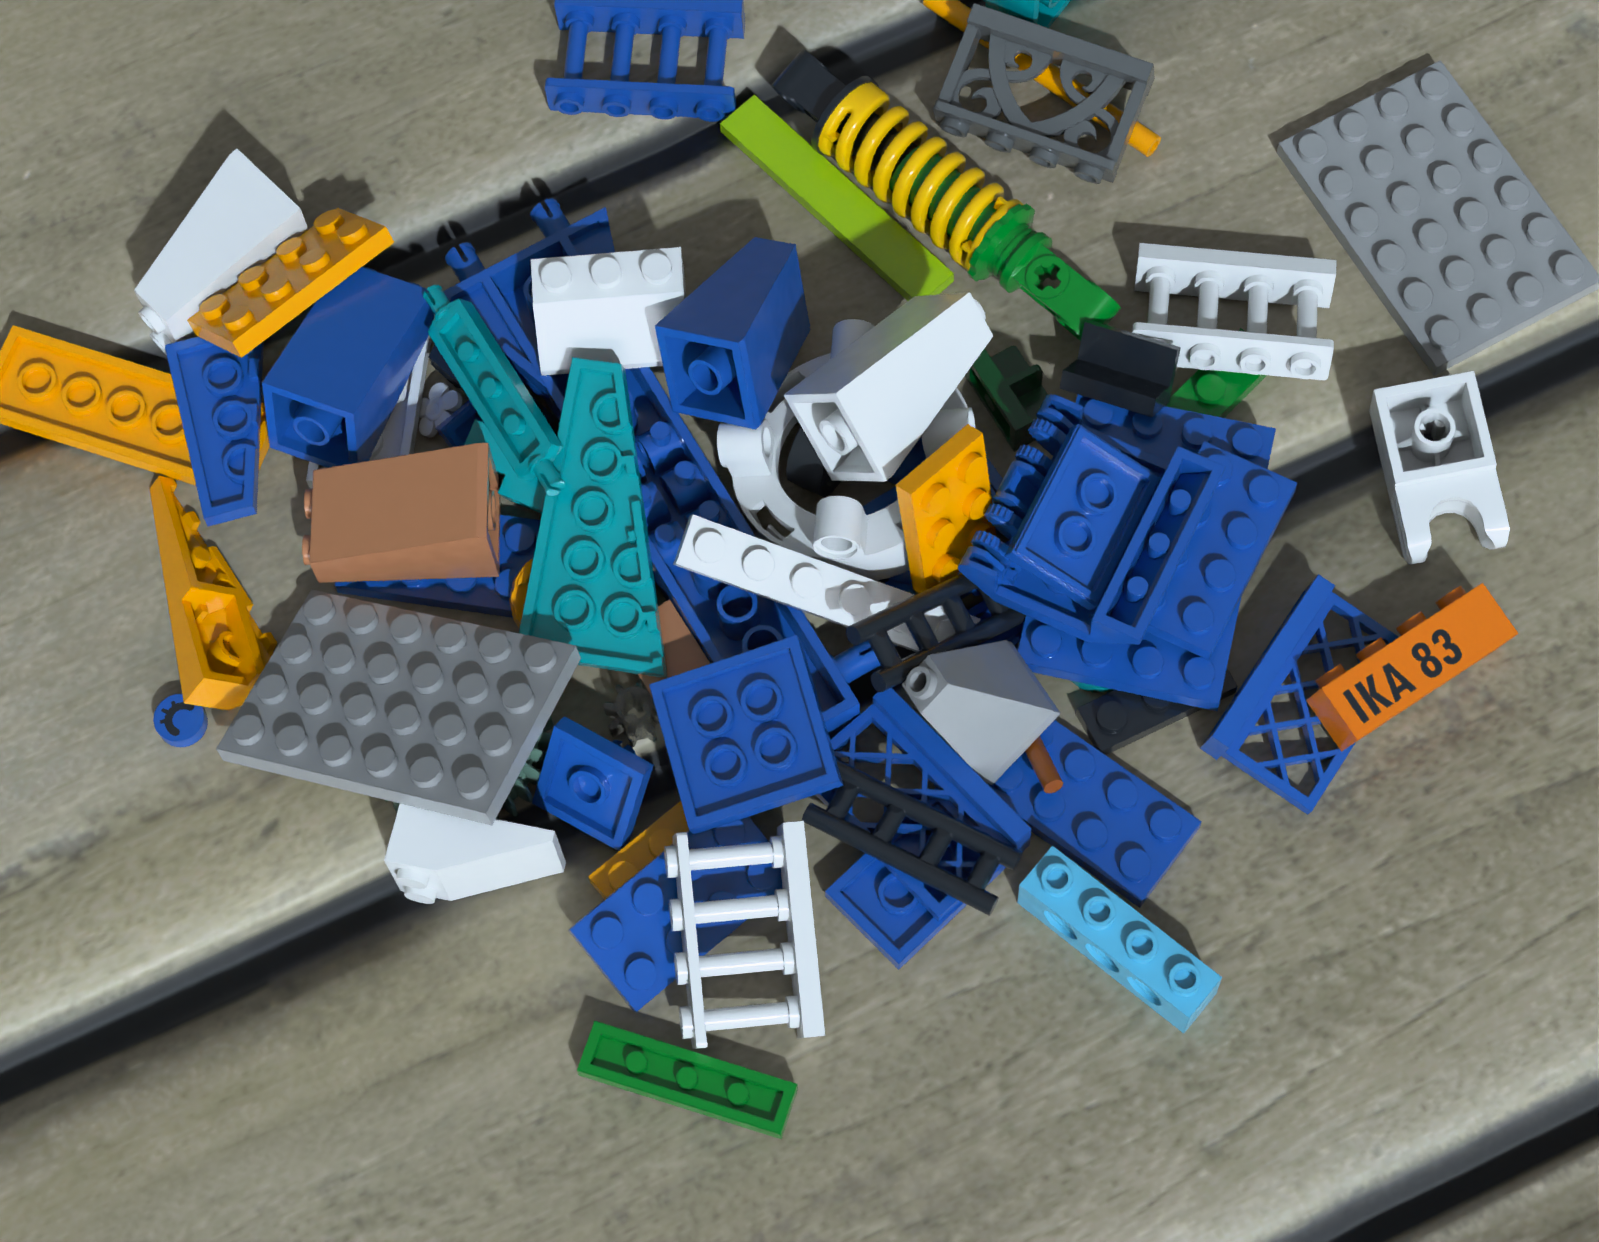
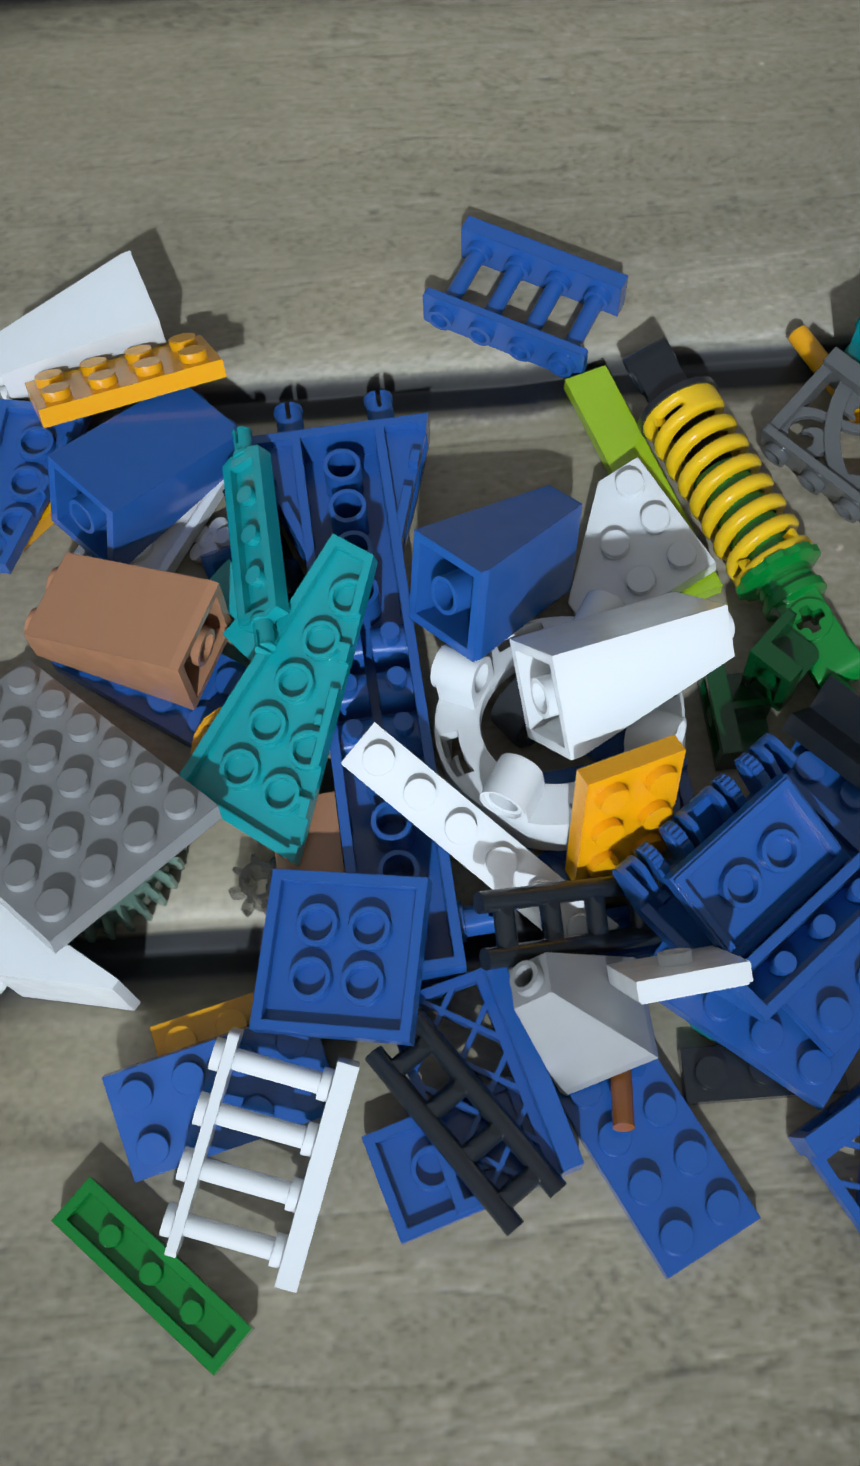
camera: 20 degrees right, 0 degrees up
(592, 783) = (190, 939): blue tile -> none
(604, 306) = (382, 494): white slope -> none
(855, 262) = (636, 542): none -> white plate
(1034, 328) = (779, 662): none -> dark green panel
(1049, 627) = (679, 973): none -> white plate
(1118, 939) = (632, 1316): medium azure brick -> none

